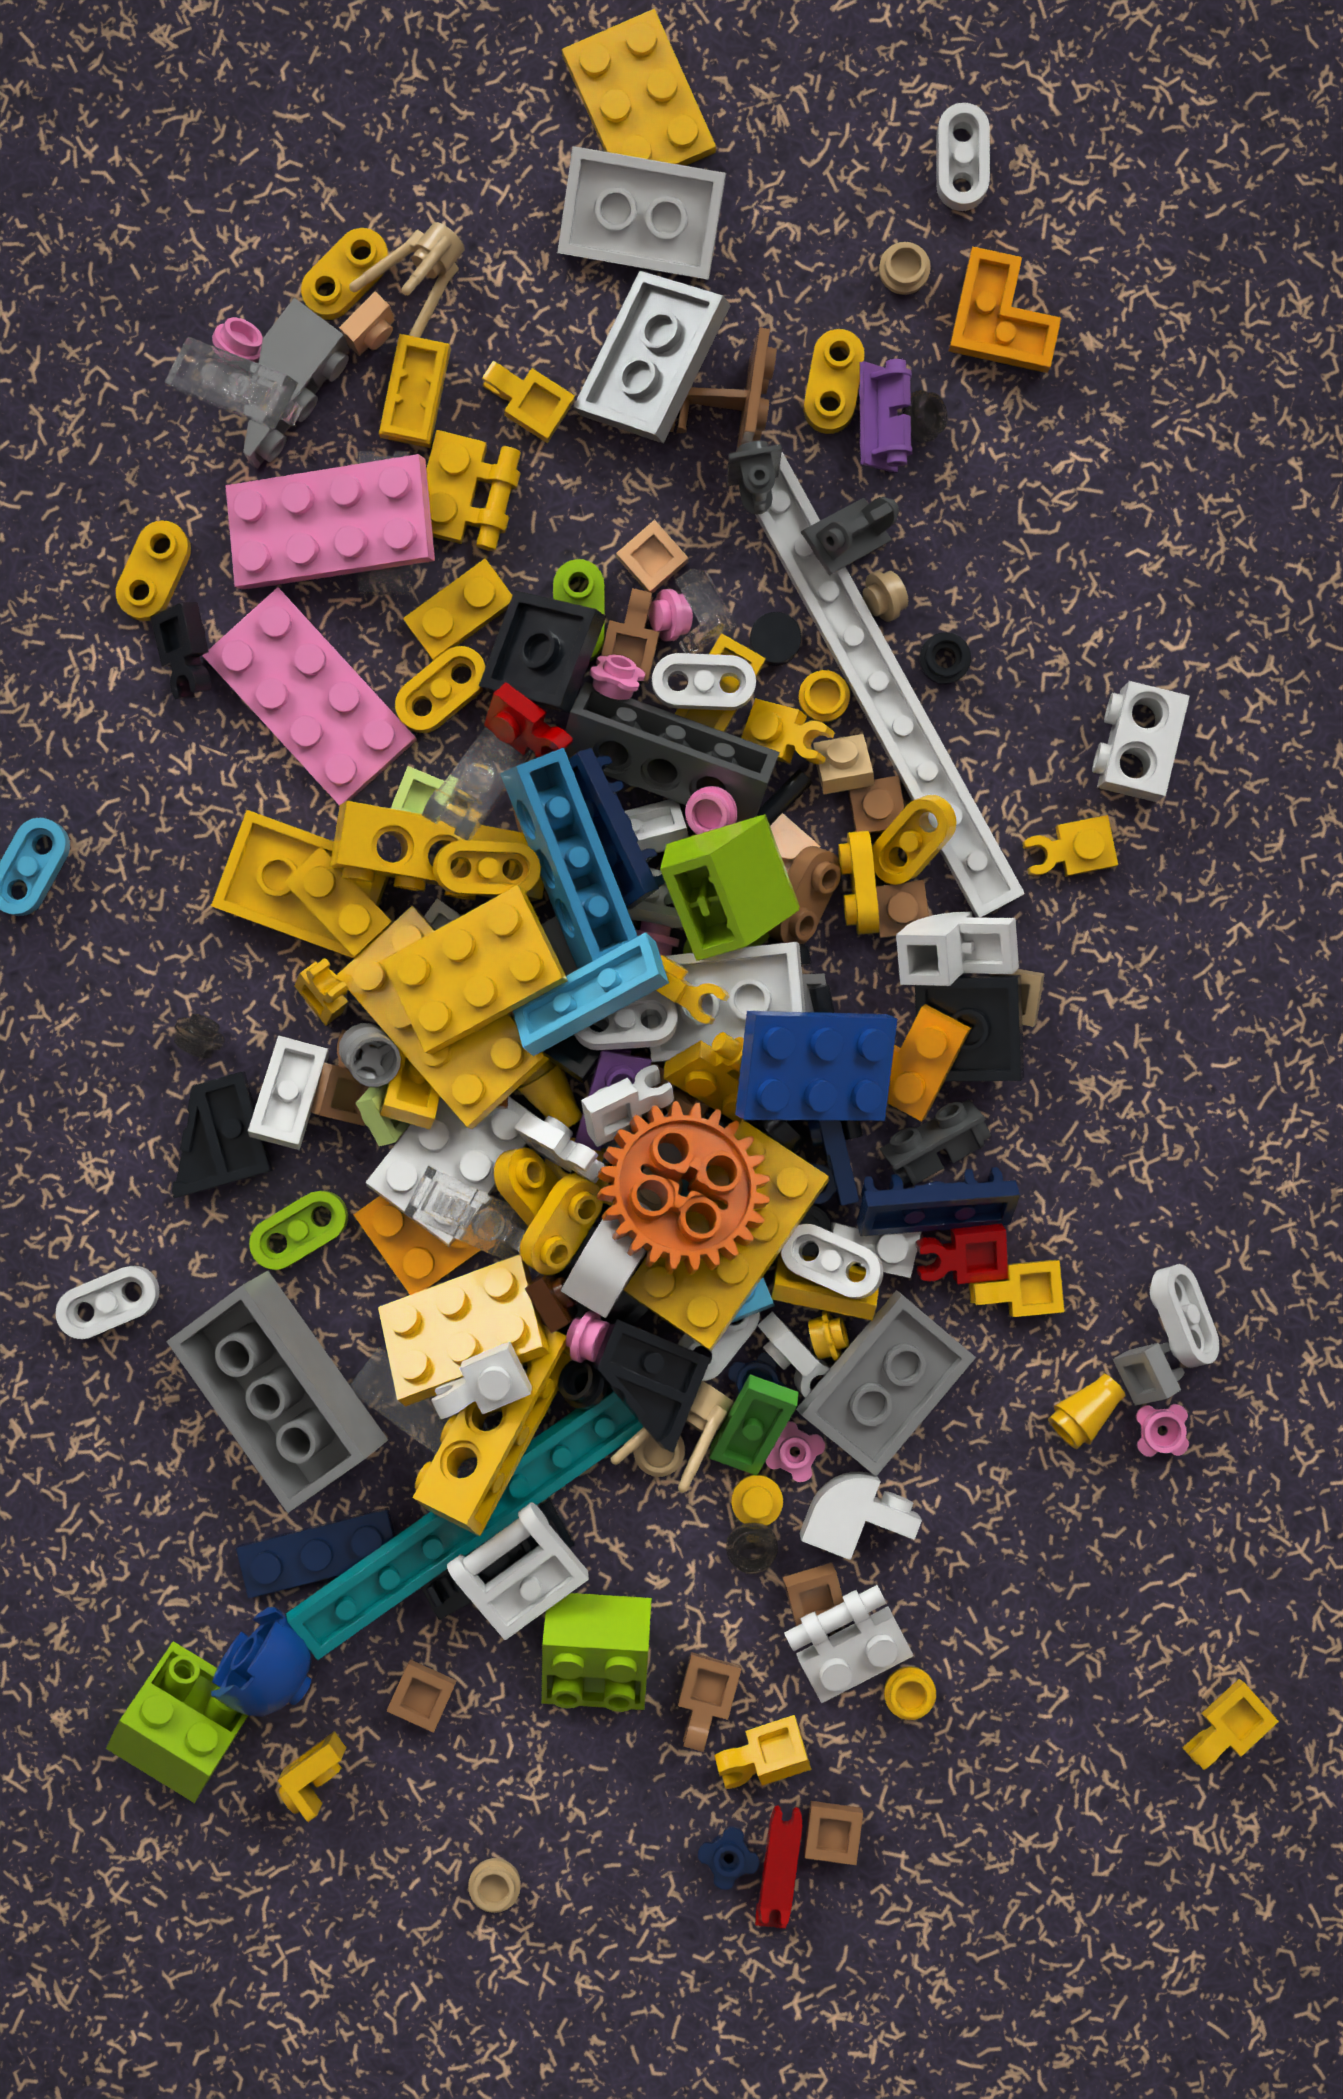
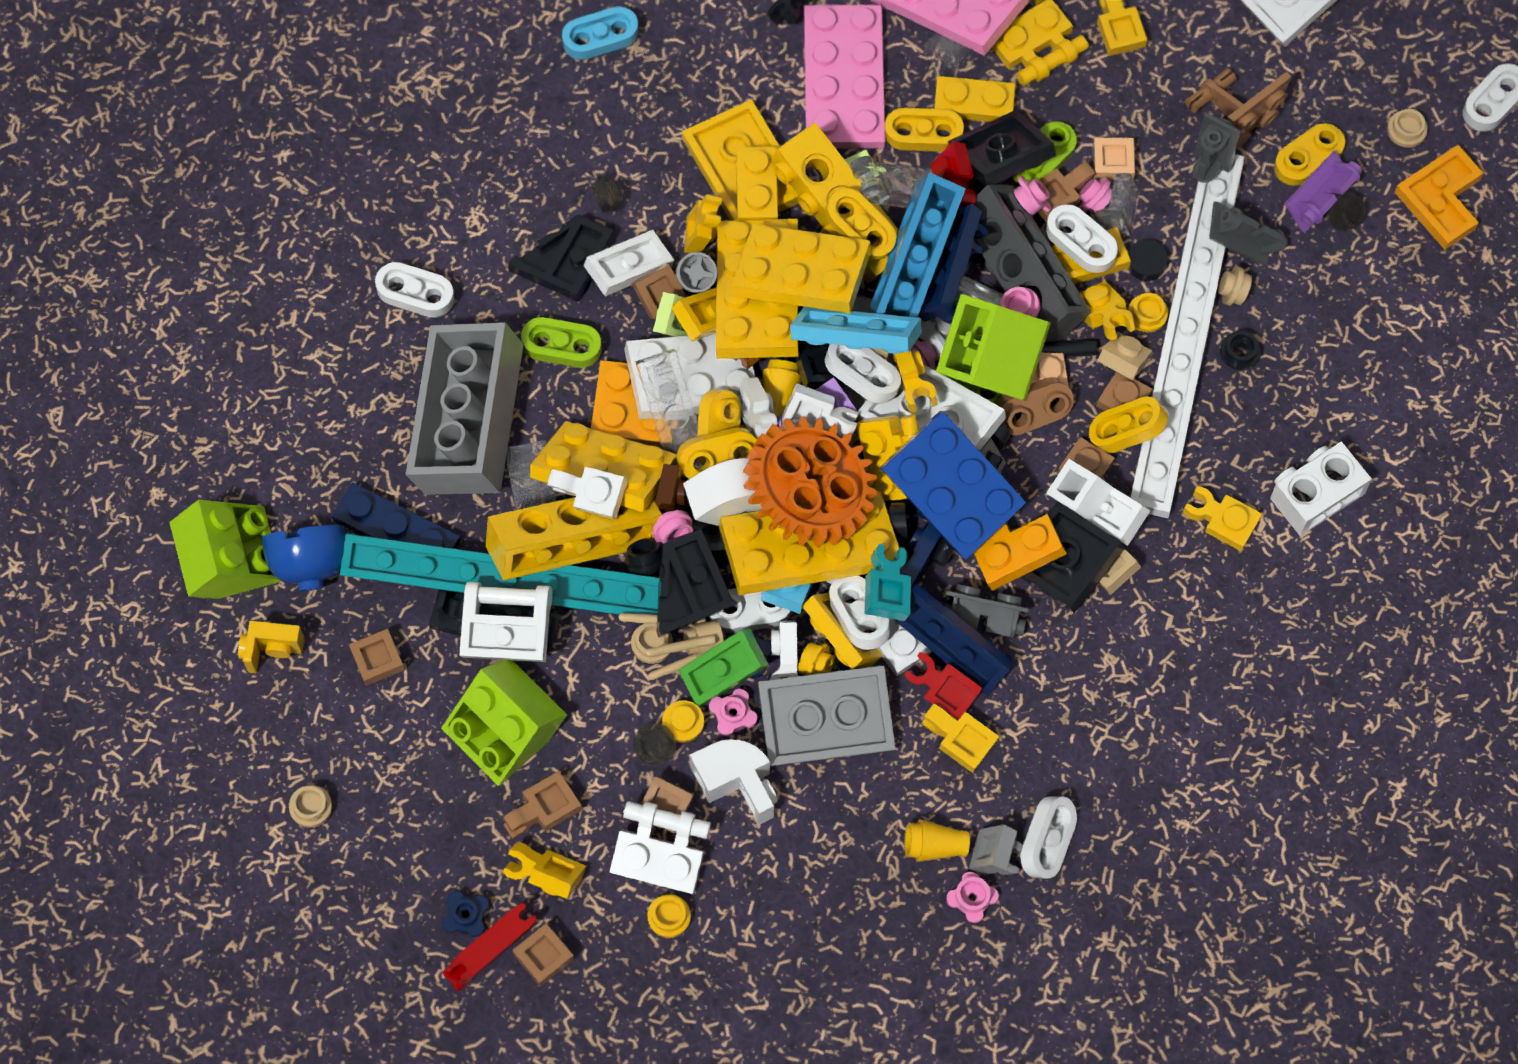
camera: 40 degrees right, 20 degrees down
(652, 356) = (1211, 53): plate -> none
(850, 1228) = (885, 588): none -> teal plate
(862, 904) = (1082, 413): yellow plate -> none

